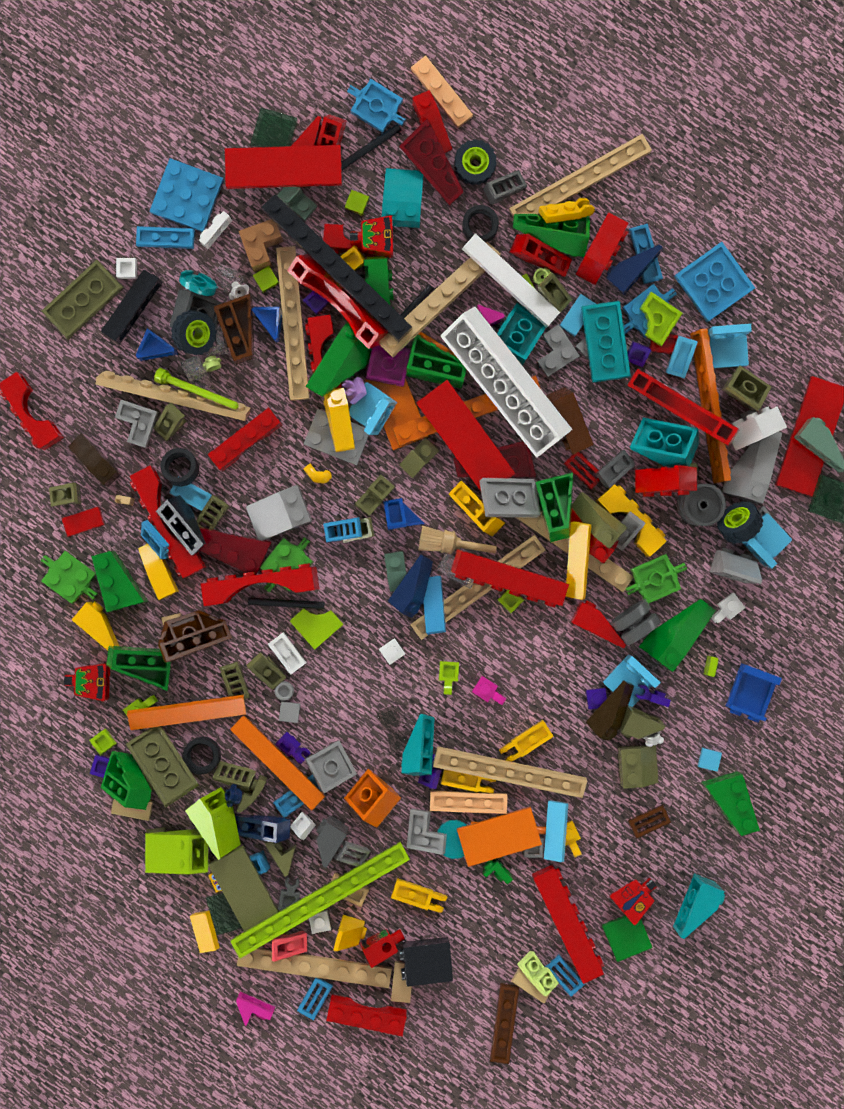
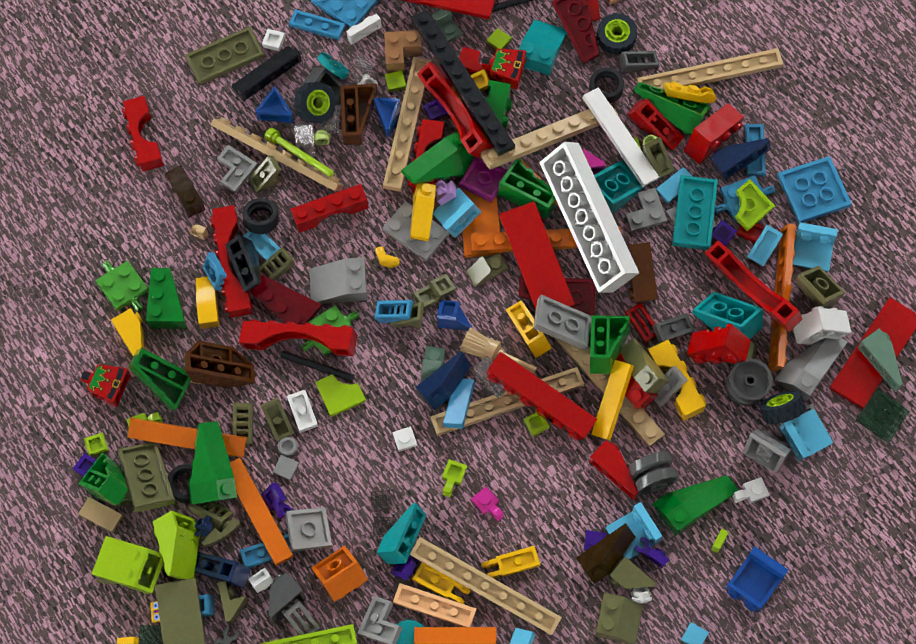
camera: 20 degrees right, 20 degrees down
(65, 494) = (147, 210): olive slope -> none
(83, 521) = (154, 241): red tile -> none
(222, 742) = (211, 471): none -> green wedge
(656, 578) = (686, 441): bright green plate -> none

